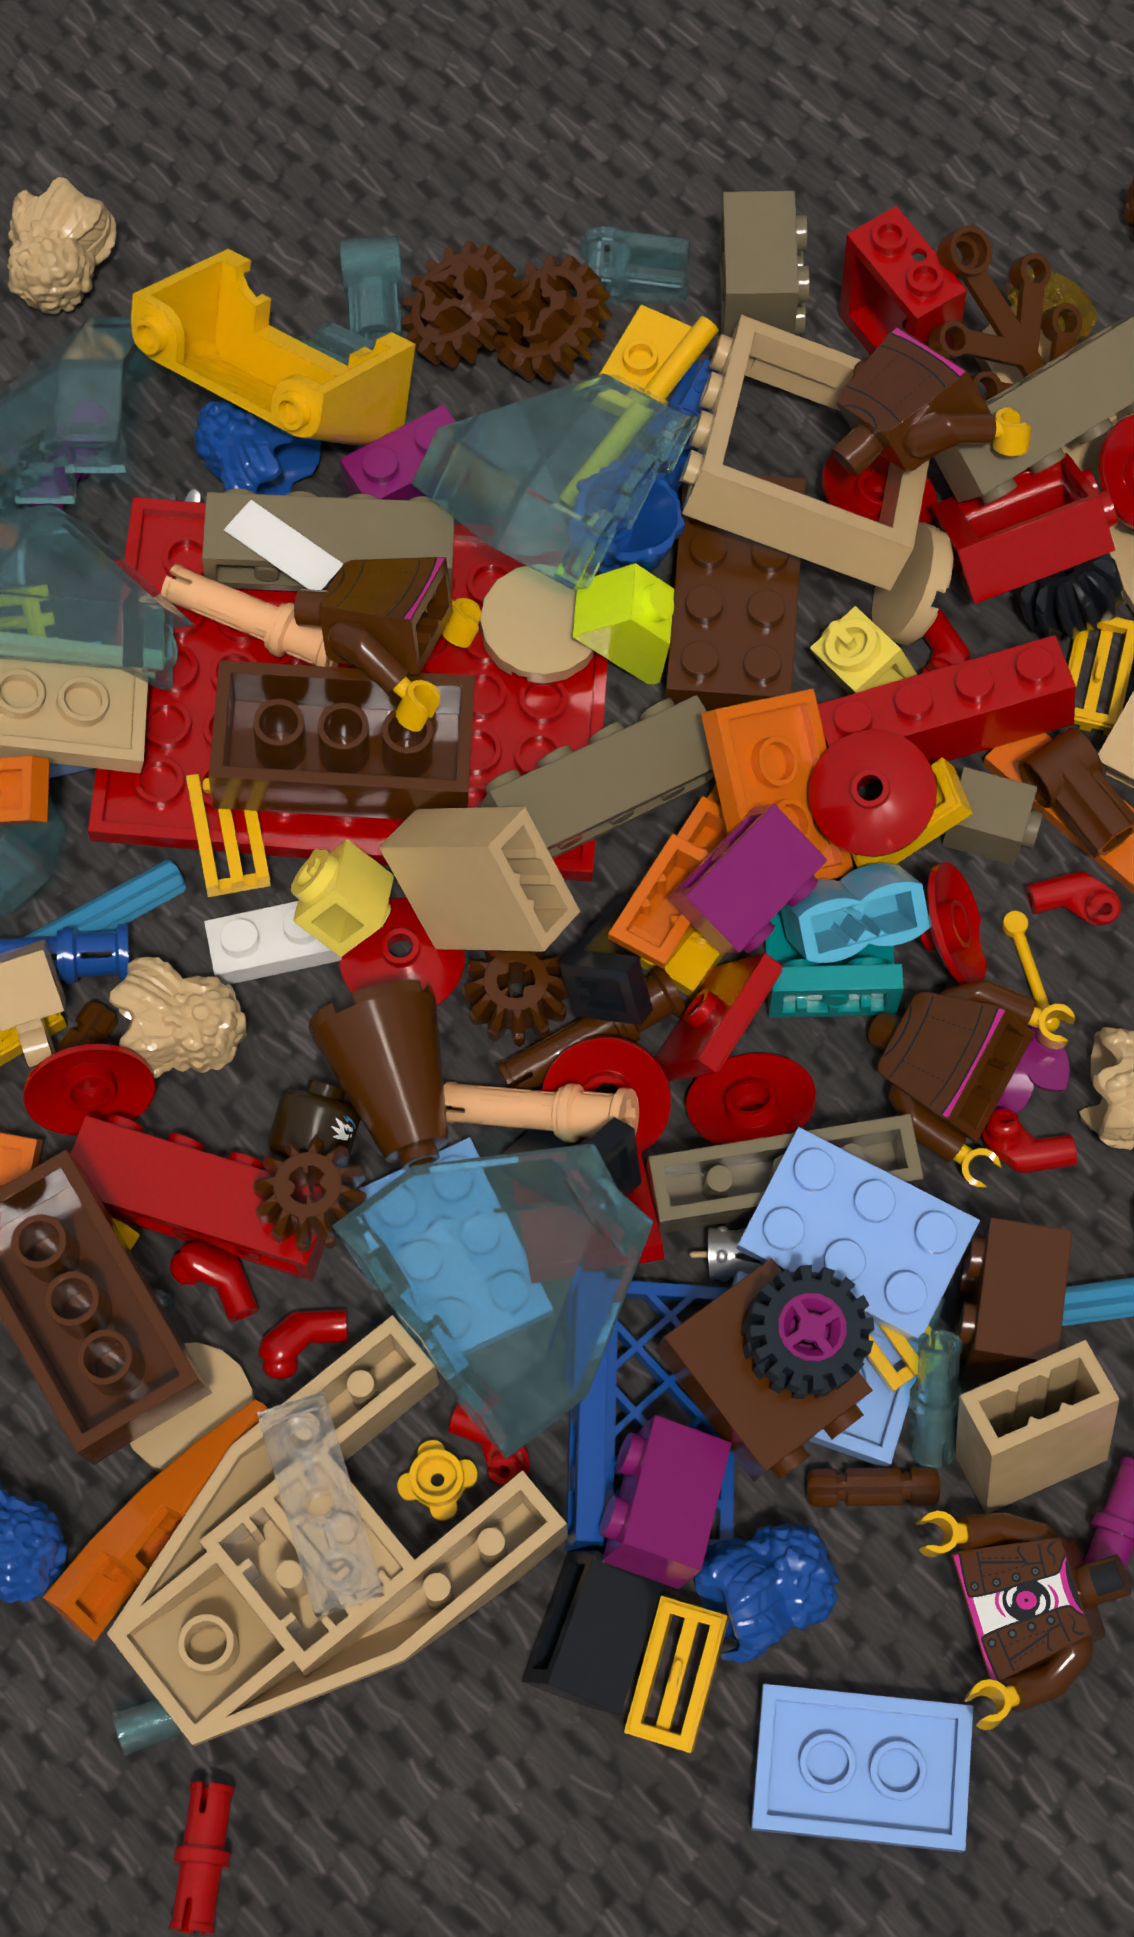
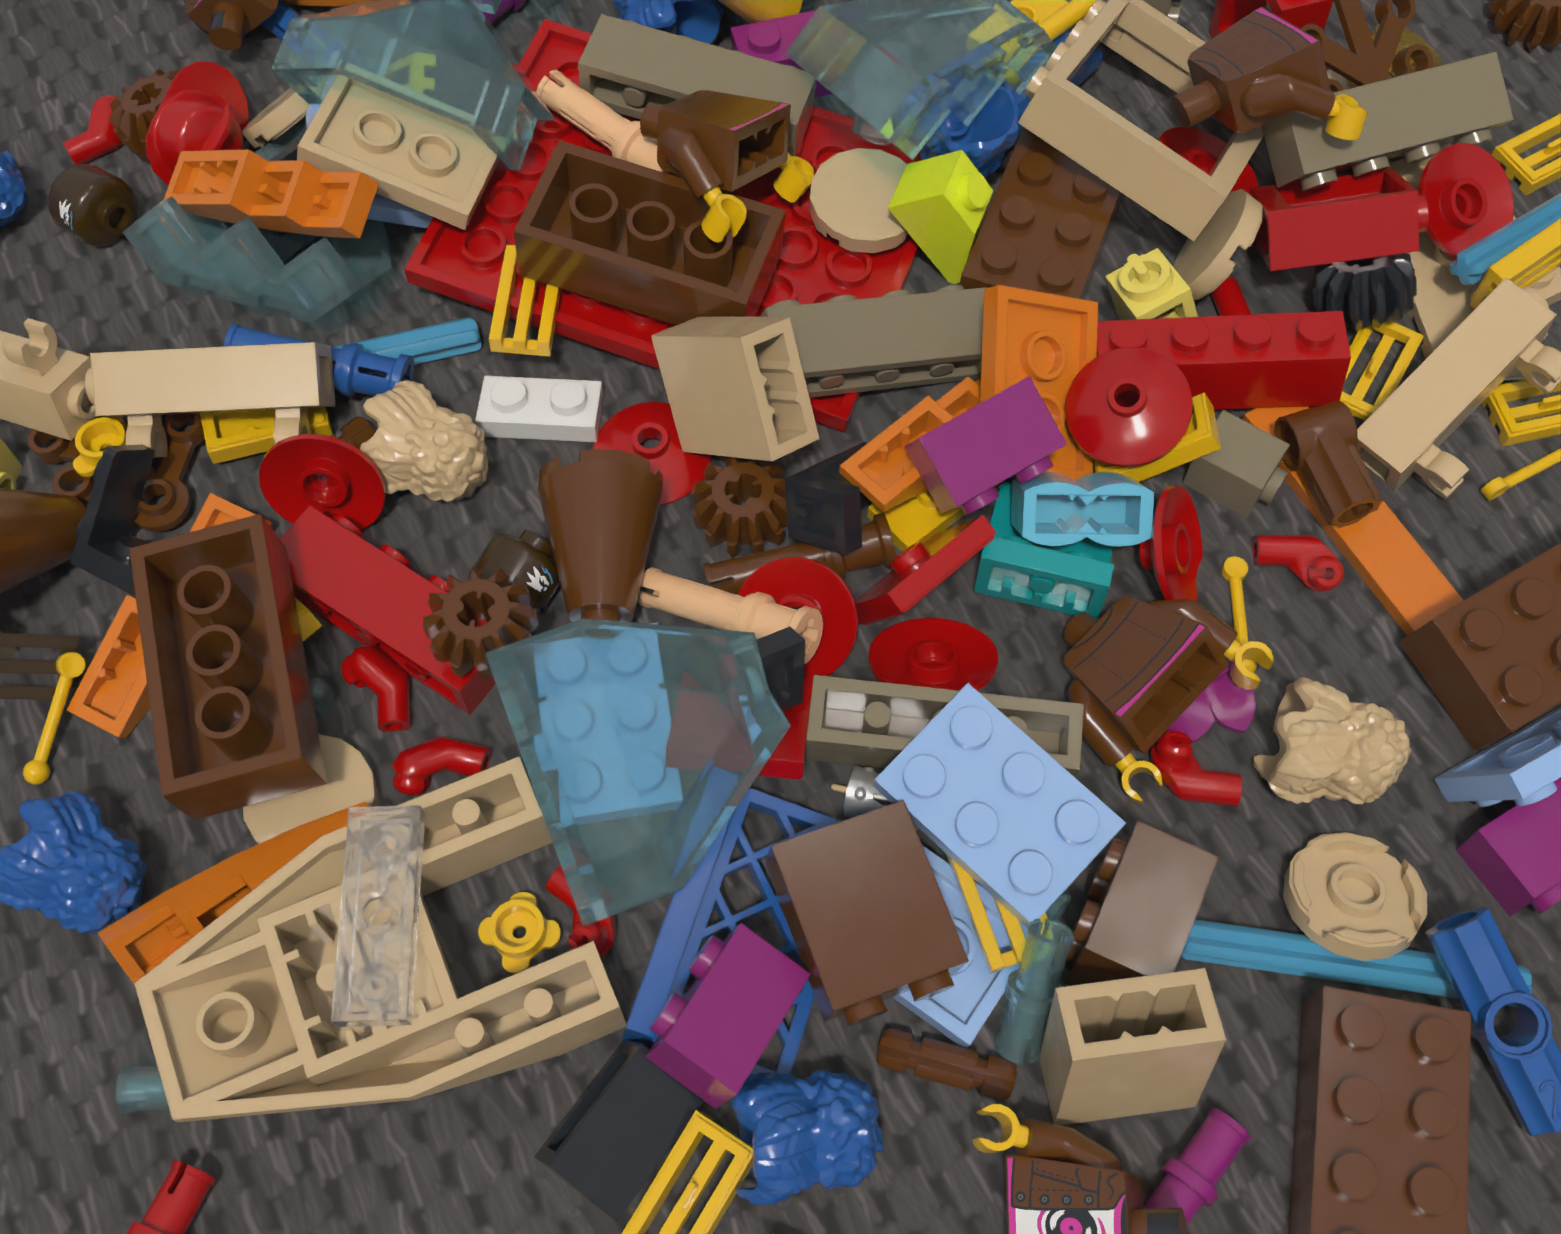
camera: 15 degrees right, 5 degrees down
(283, 546) = (649, 67): white sticker -> none
(342, 896) = (609, 379): light yellow brick -> none
(825, 1316) = (938, 868): black wheel -> none

